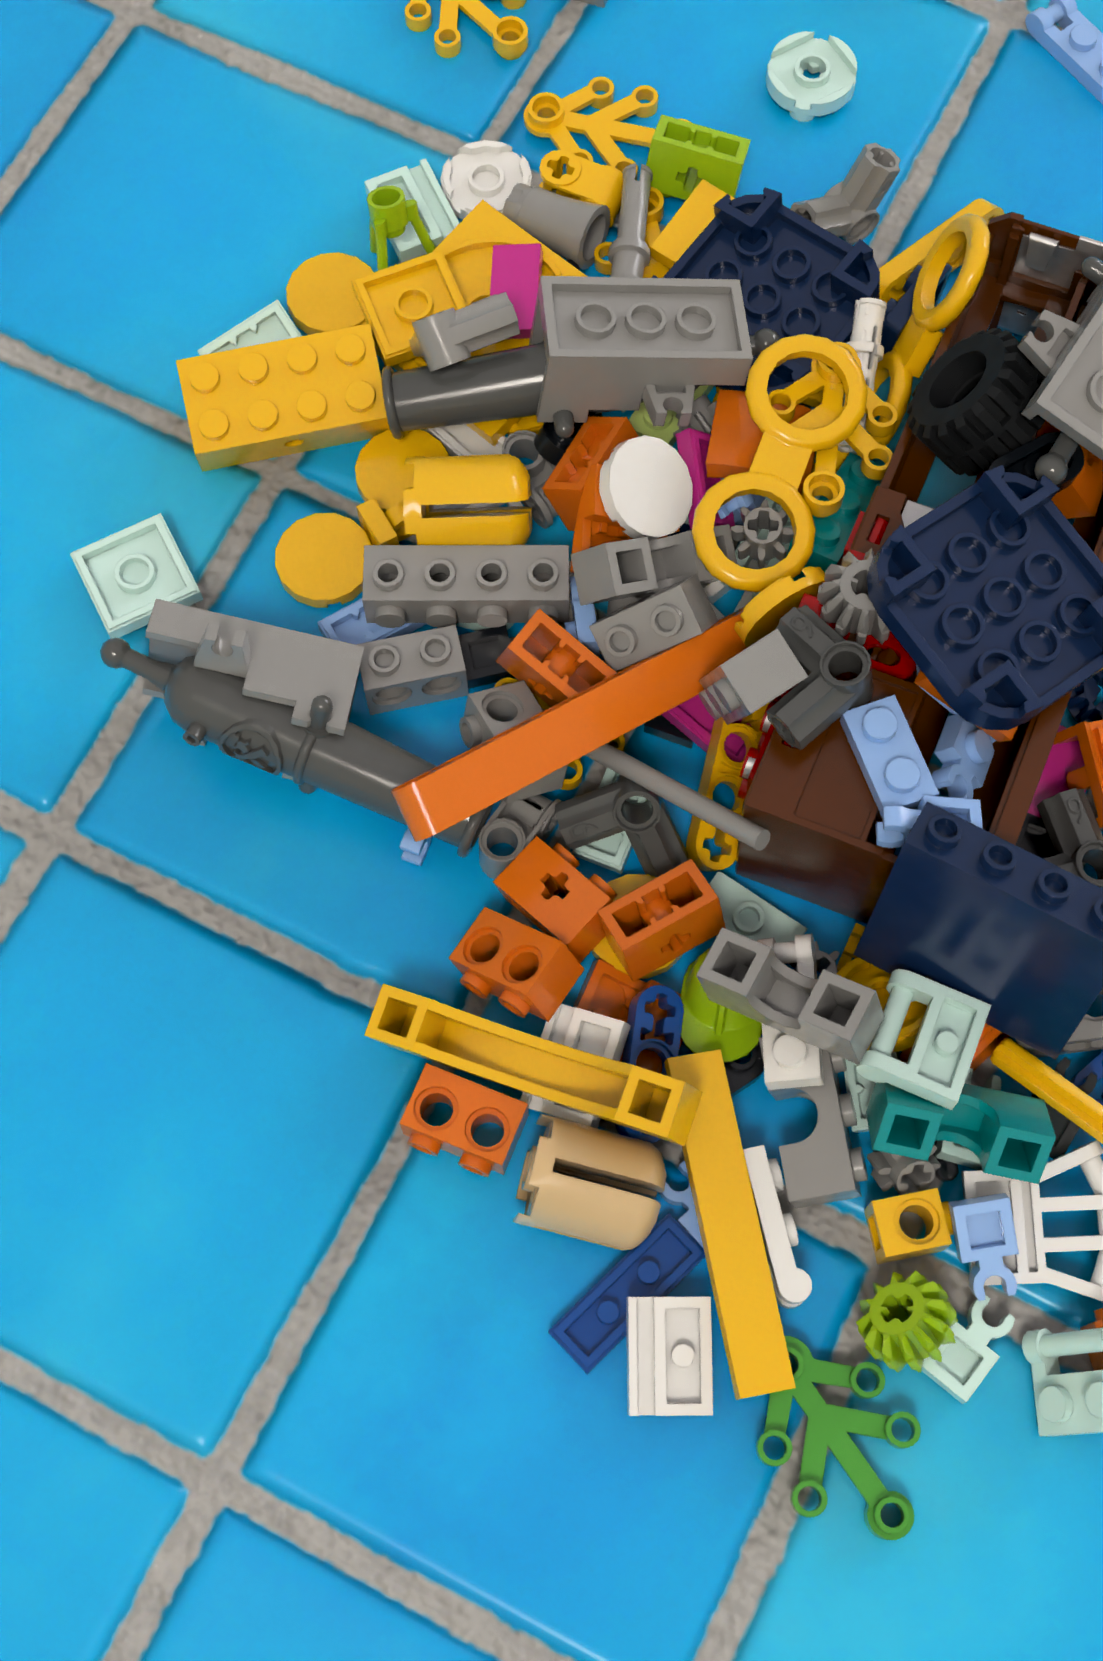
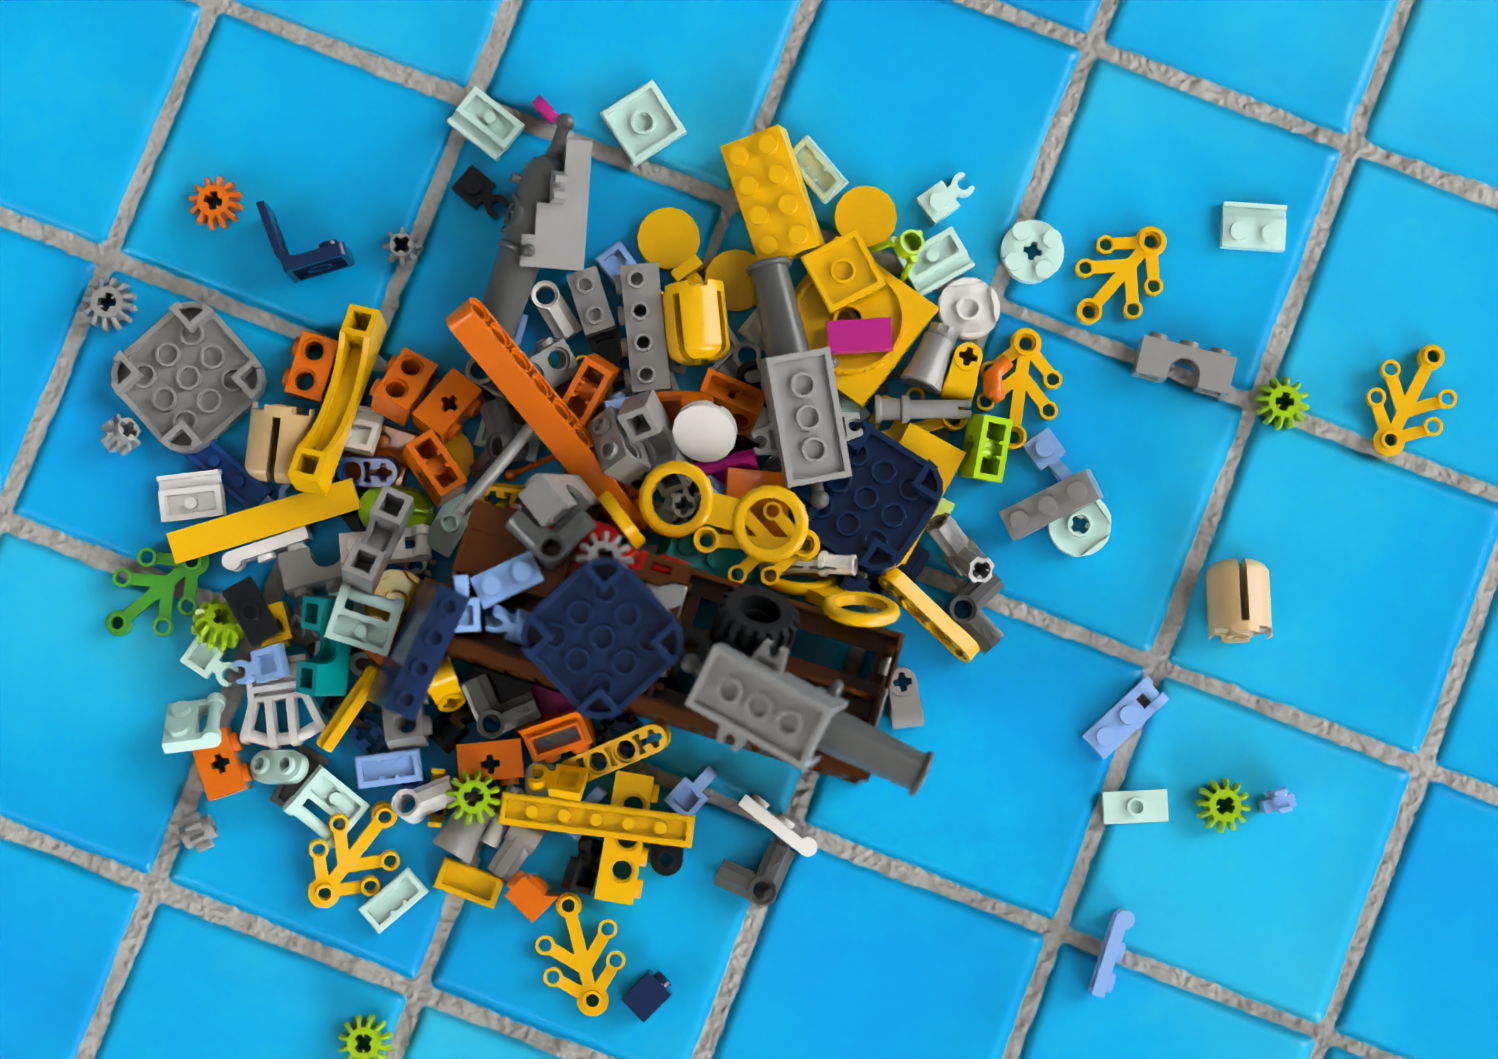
camera: 80 degrees right, 15 degrees up
(87, 713) = (545, 109): none -> dark pink tile
(93, 807) = (486, 124): none -> light aqua plate
(156, 1284) = (219, 190): none -> orange gear
(200, 835) = (477, 190): none -> black plate
(277, 1136) = (326, 259): none -> dark blue piece
(284, 941) = (400, 254): none -> light grey gear
(286, 1490) = (113, 314): none -> light grey gear
(321, 199) = (941, 200): none -> light aqua plate
(410, 77) = (1041, 267): none -> light aqua plate
(421, 723) = (557, 313): none -> white piece
(455, 1345) = (188, 377): none -> light grey tile
(456, 333) = (798, 297): light grey piece -> none
(547, 1477) = (120, 435): none -> light grey gear
(601, 148) = (993, 379): none -> orange arm
(646, 749) = (511, 474): none -> orange hinge
(709, 104) = (1046, 452): none -> light blue plate
(778, 57) = (1051, 504): none -> light grey arch
(891, 1251) = (251, 612): none -> black plate
(924, 209) = (976, 623): none -> dark grey piece

